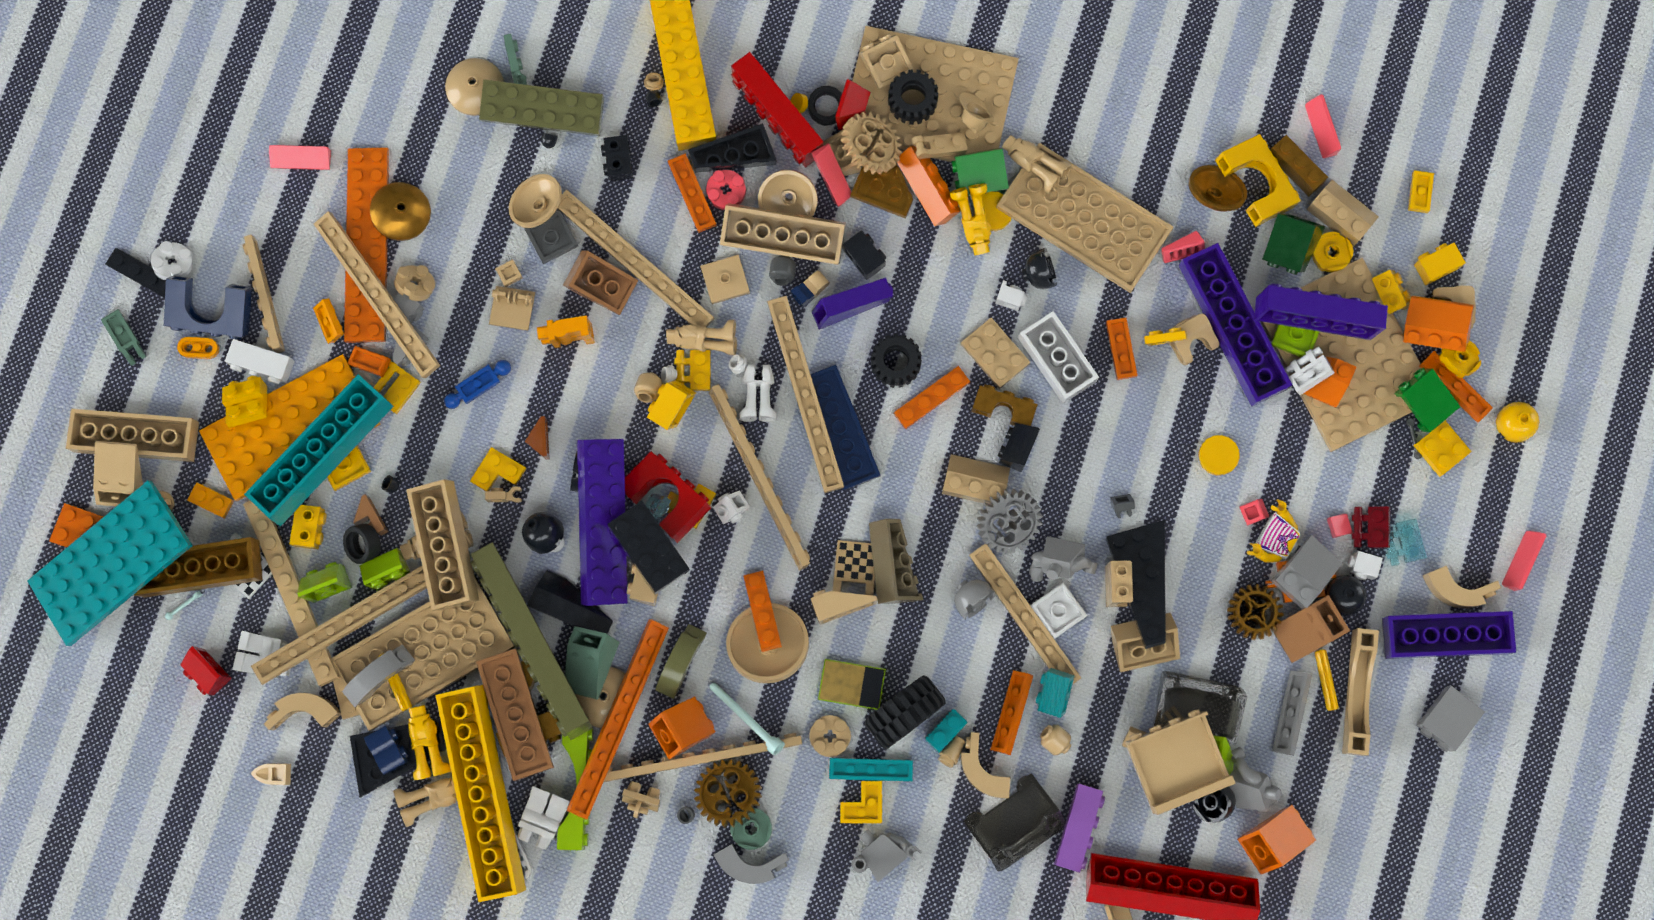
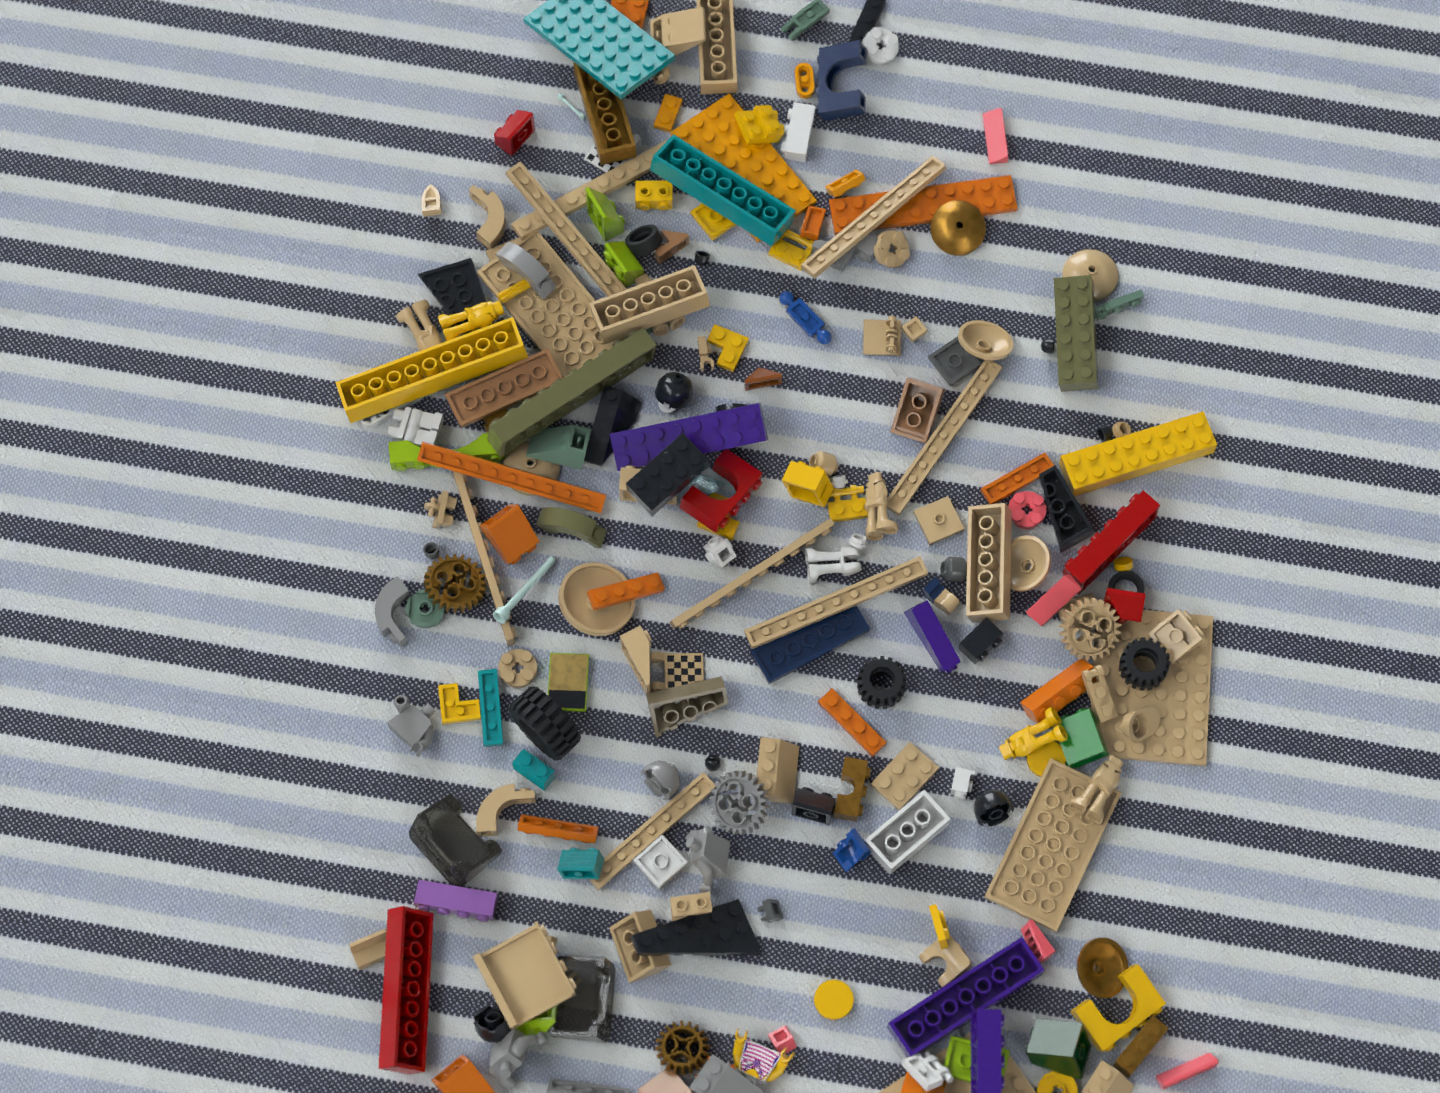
camera: 80 degrees right, 10 degrees down
(257, 644) = (543, 171): white hips -> none
(265, 300) = (864, 125): tan plate -> none
(386, 749) = (461, 287): dark blue brick -> none
(566, 331) = (864, 385): light orange hips -> none
(618, 158) = (1040, 408): black brick -> none
(884, 191) = (1049, 654): pearl gold plate -> none
(950, 754) = (513, 776): tan cone -> none
(953, 542) = (711, 766): none -> black hinge
(1055, 739) = (536, 871): tan head -> none
(1070, 415) = (851, 850): none -> blue cylinder
(1121, 348) = (926, 894): orange plate -> none

